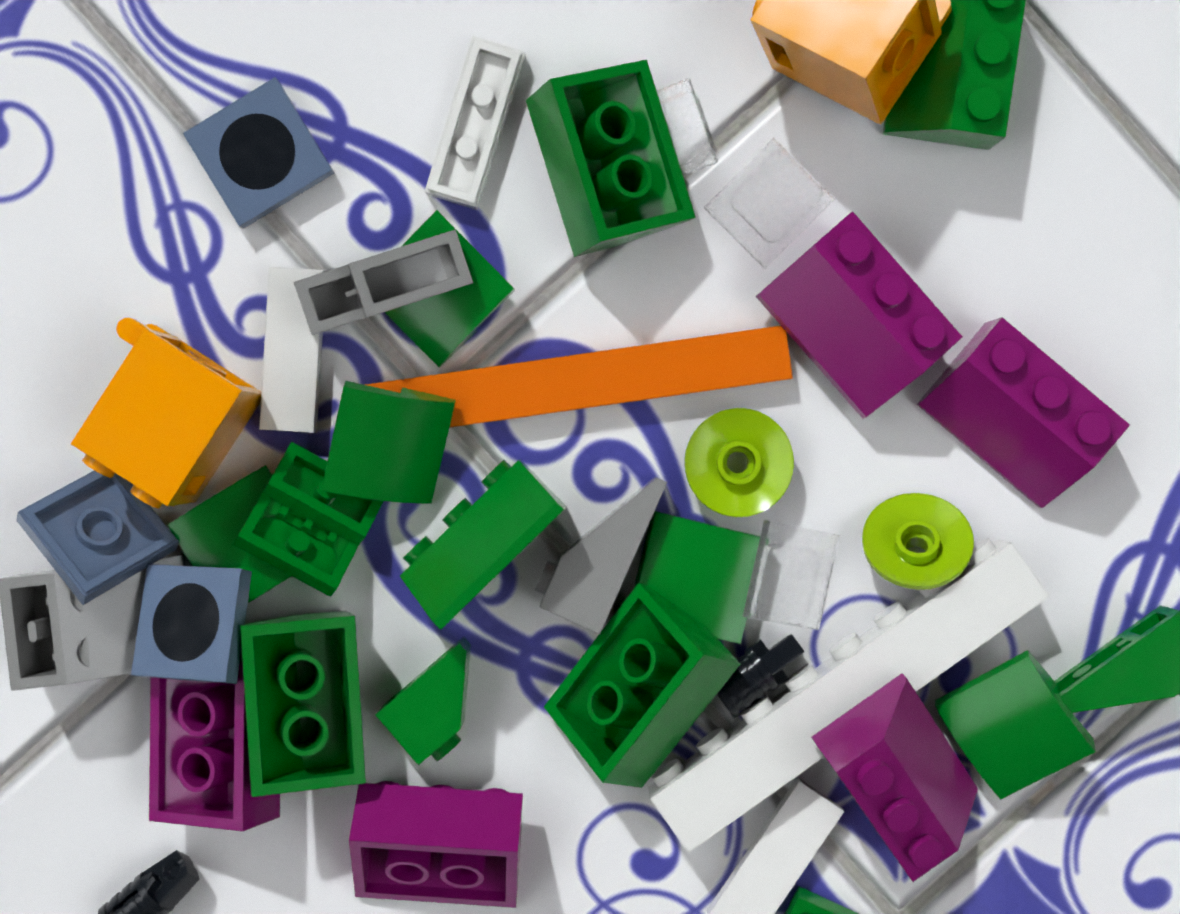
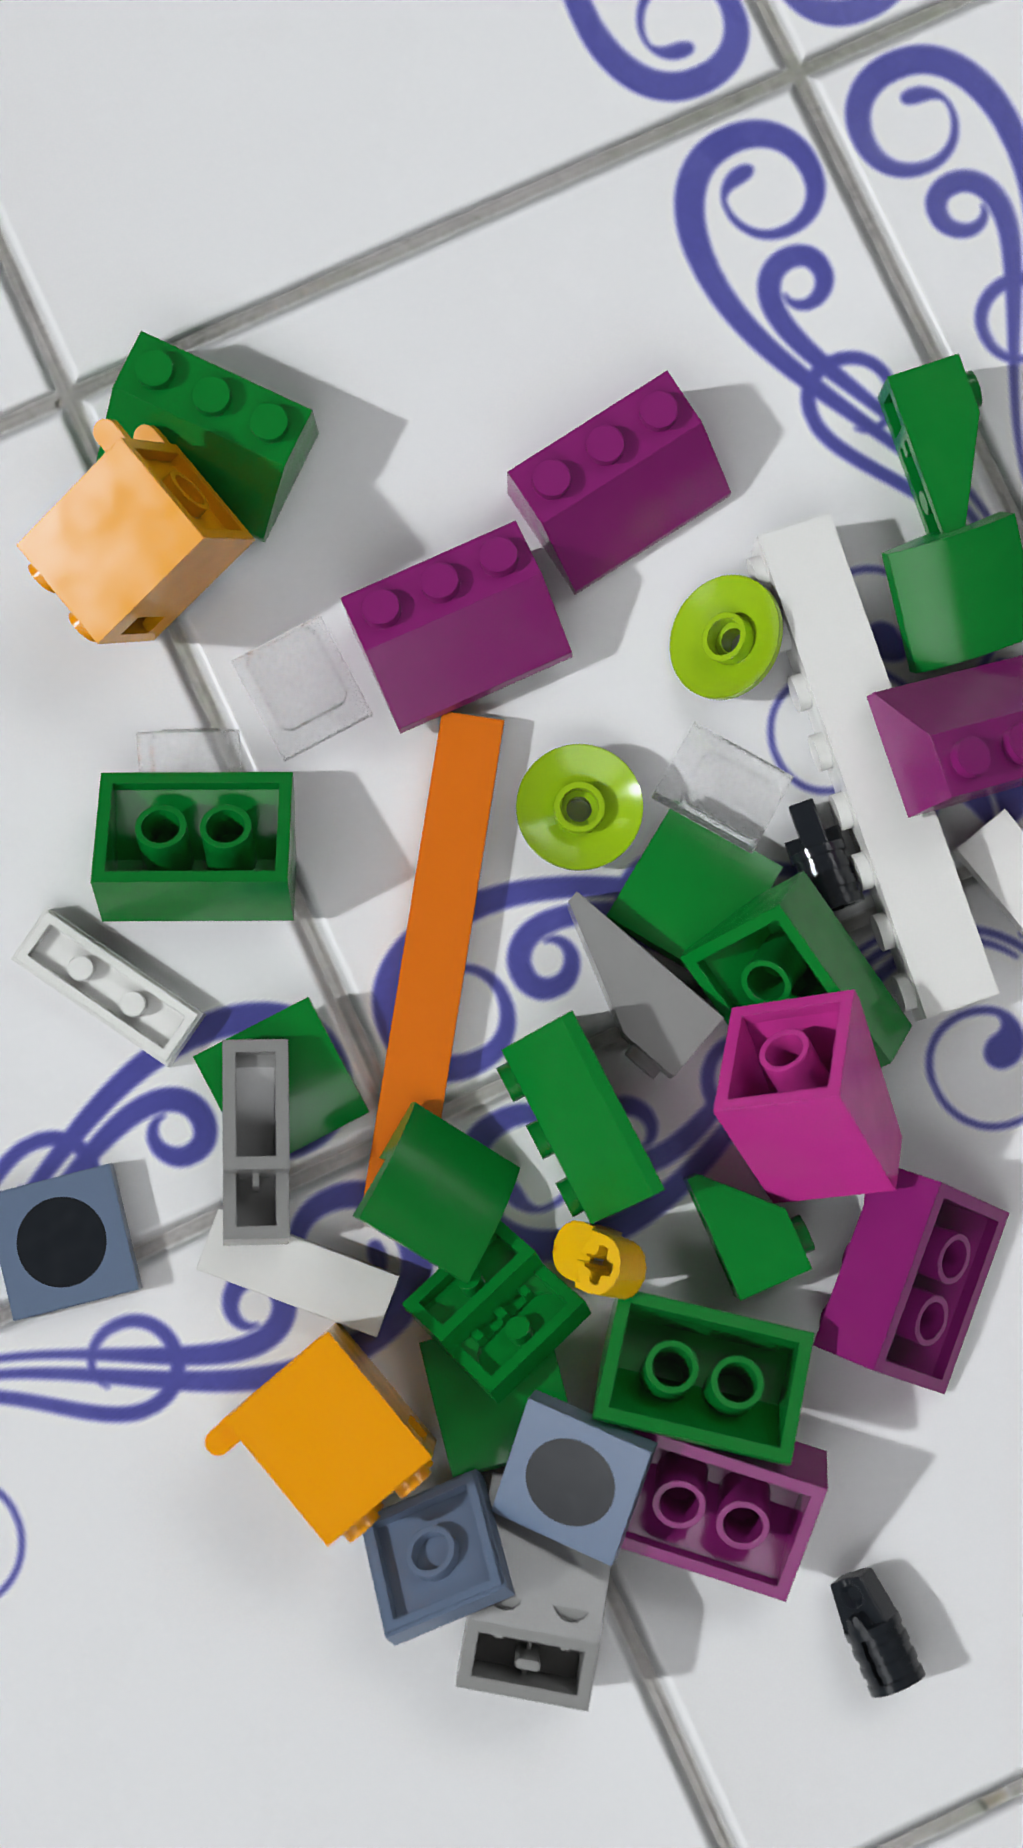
camera: 70 degrees left, 5 degrees down
(372, 591) = (616, 1276): none -> yellow piece
(554, 723) = (808, 1099): none -> dark pink slope

